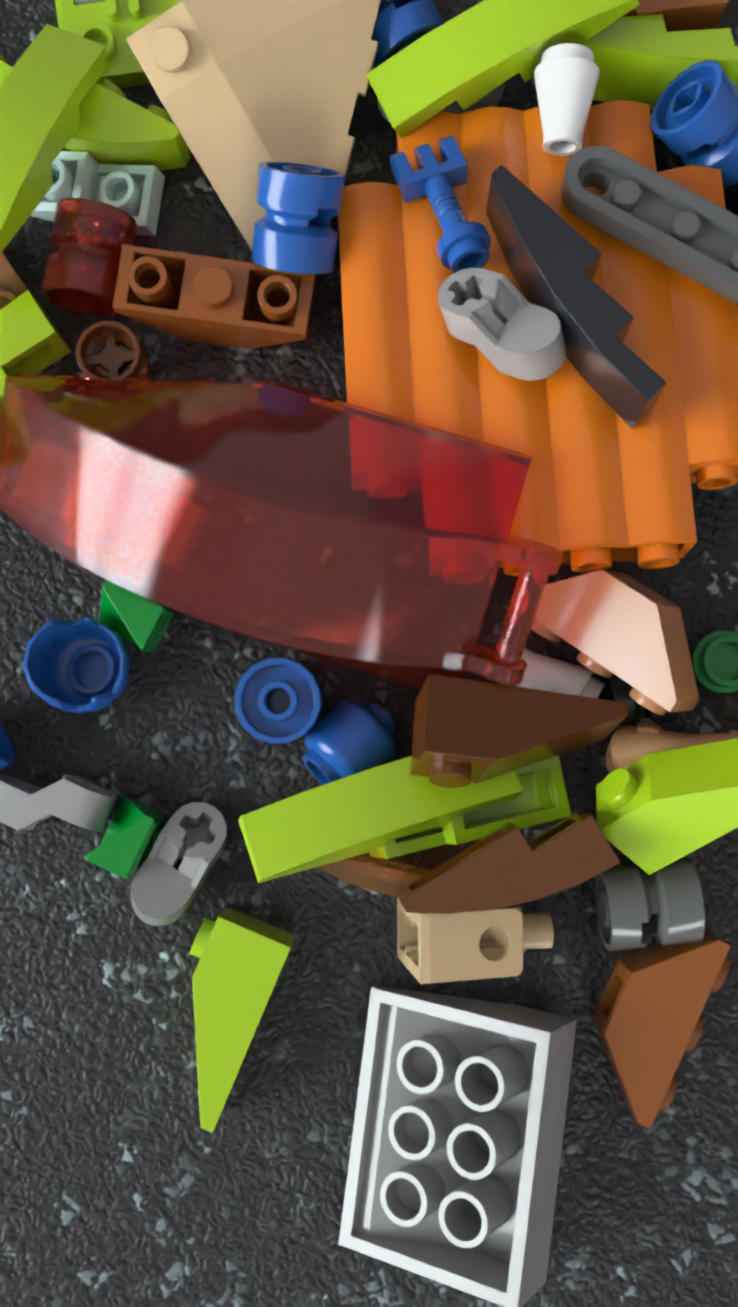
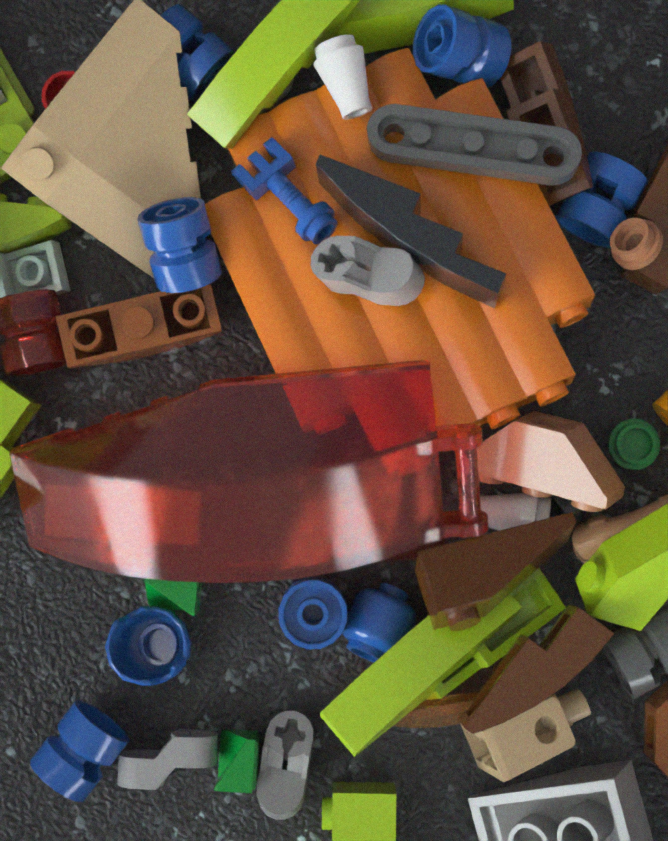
camera: 25 degrees left, 0 degrees up
(108, 347) = (72, 399): reddish brown wheel -> none

